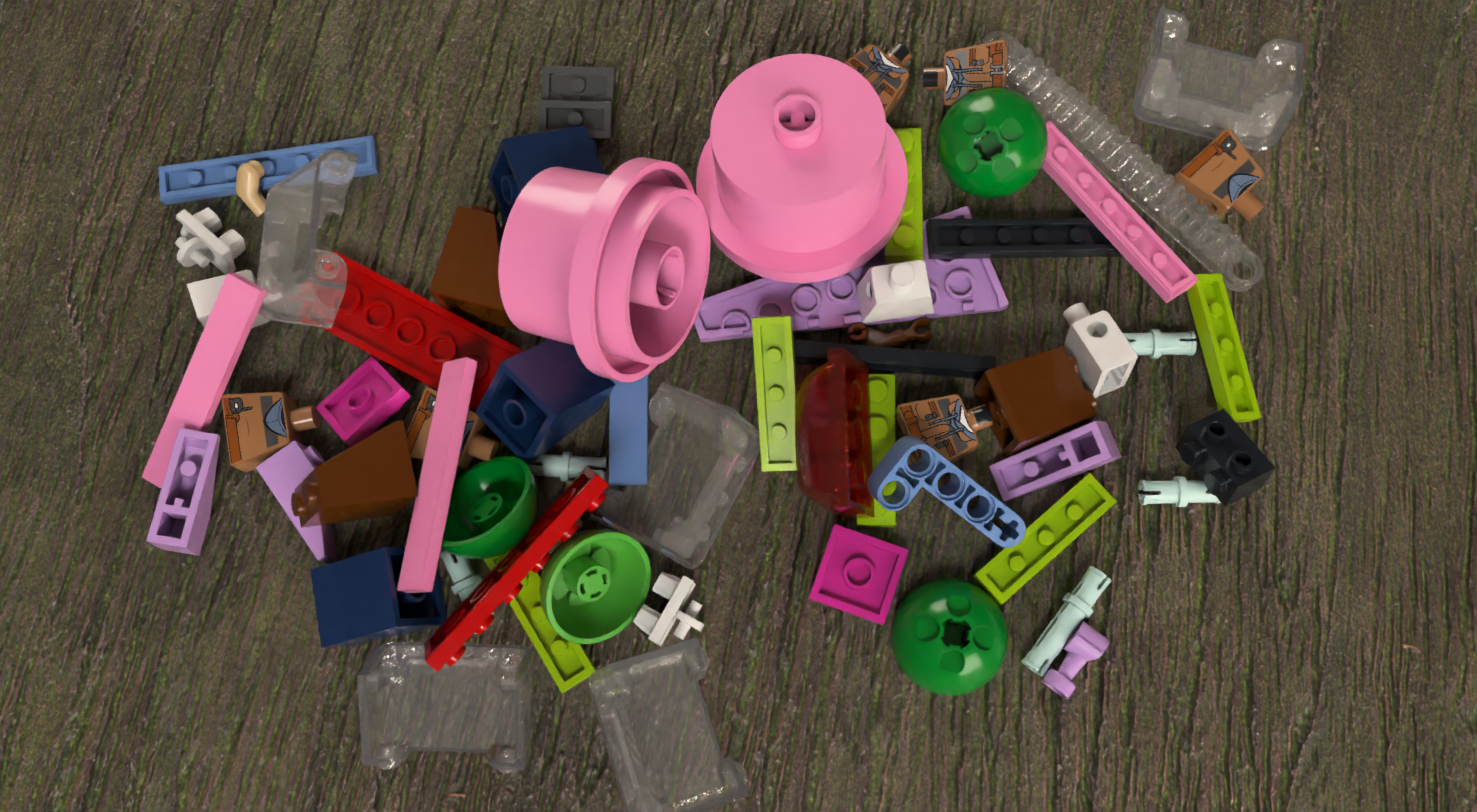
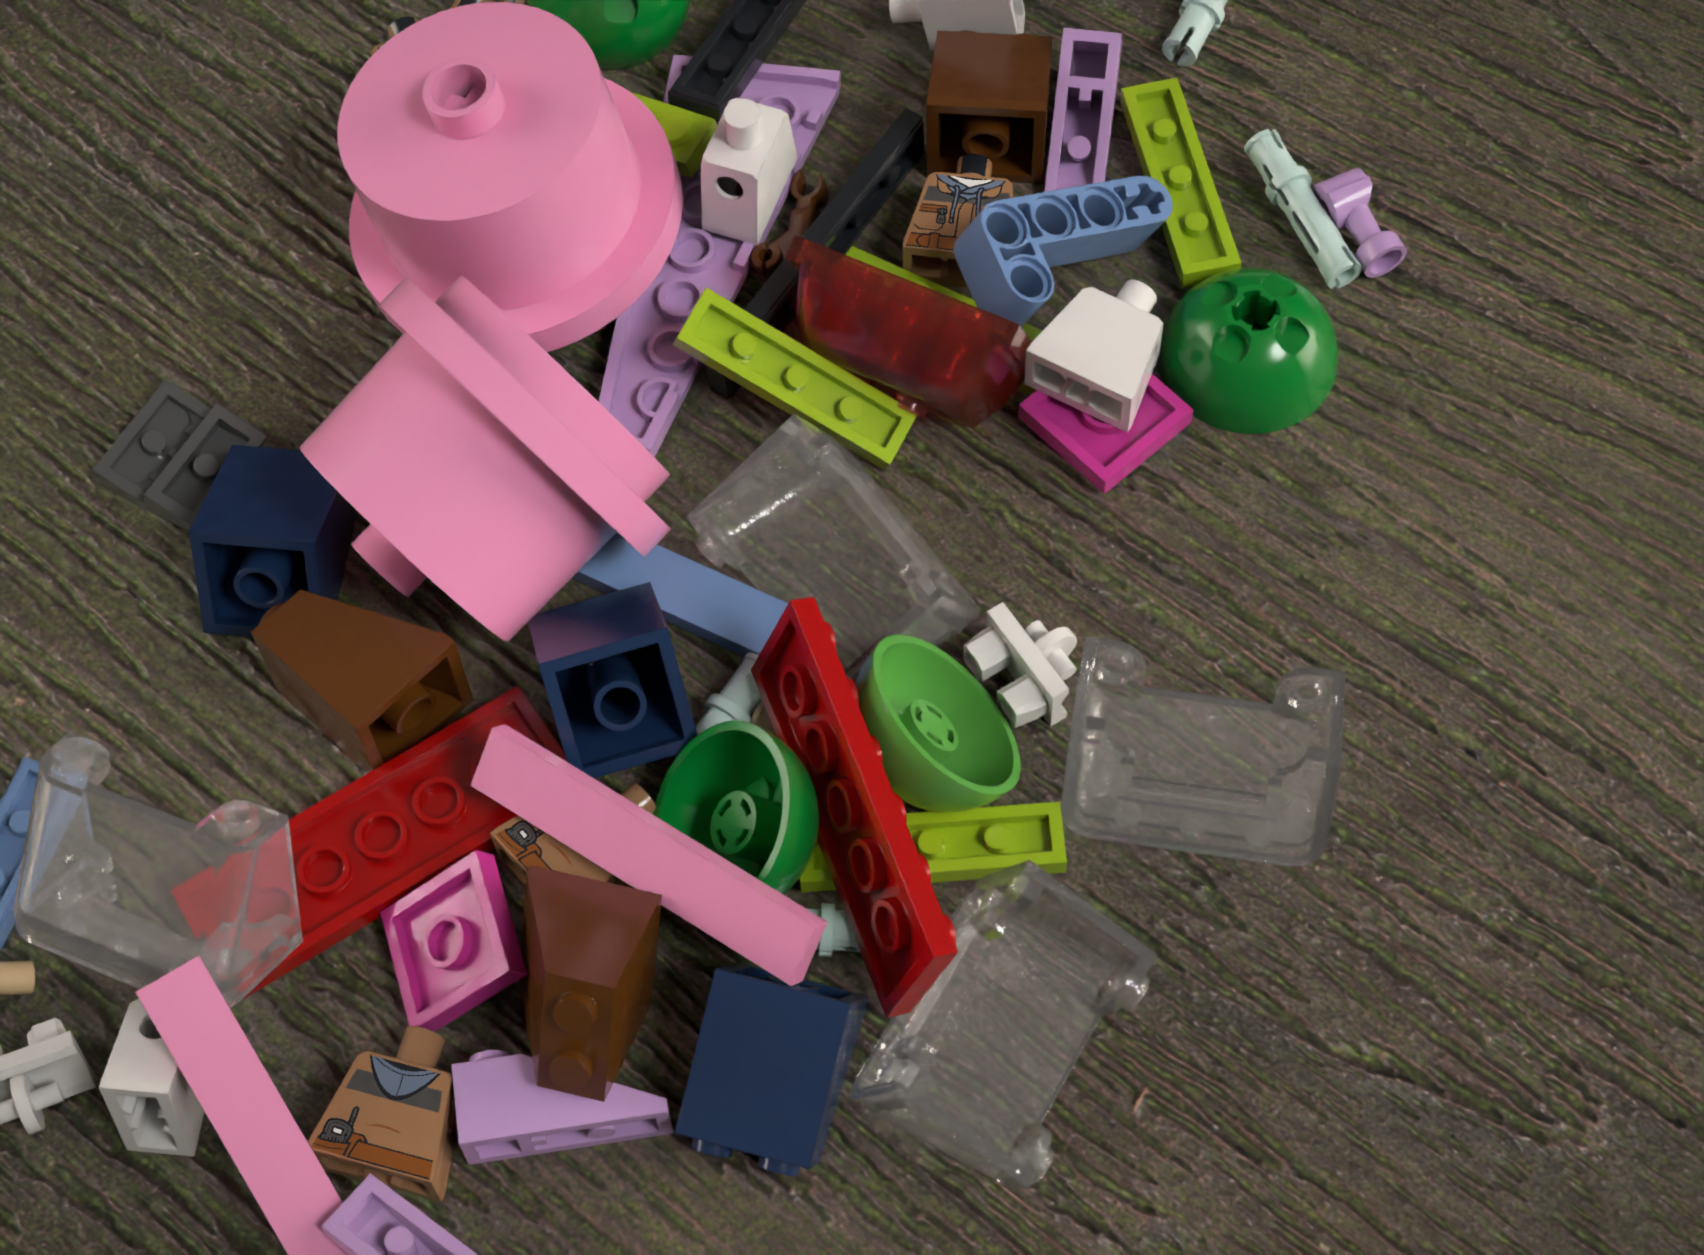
camera: 65 degrees left, 15 degrees down
(885, 555) = (1099, 353): none -> white torso

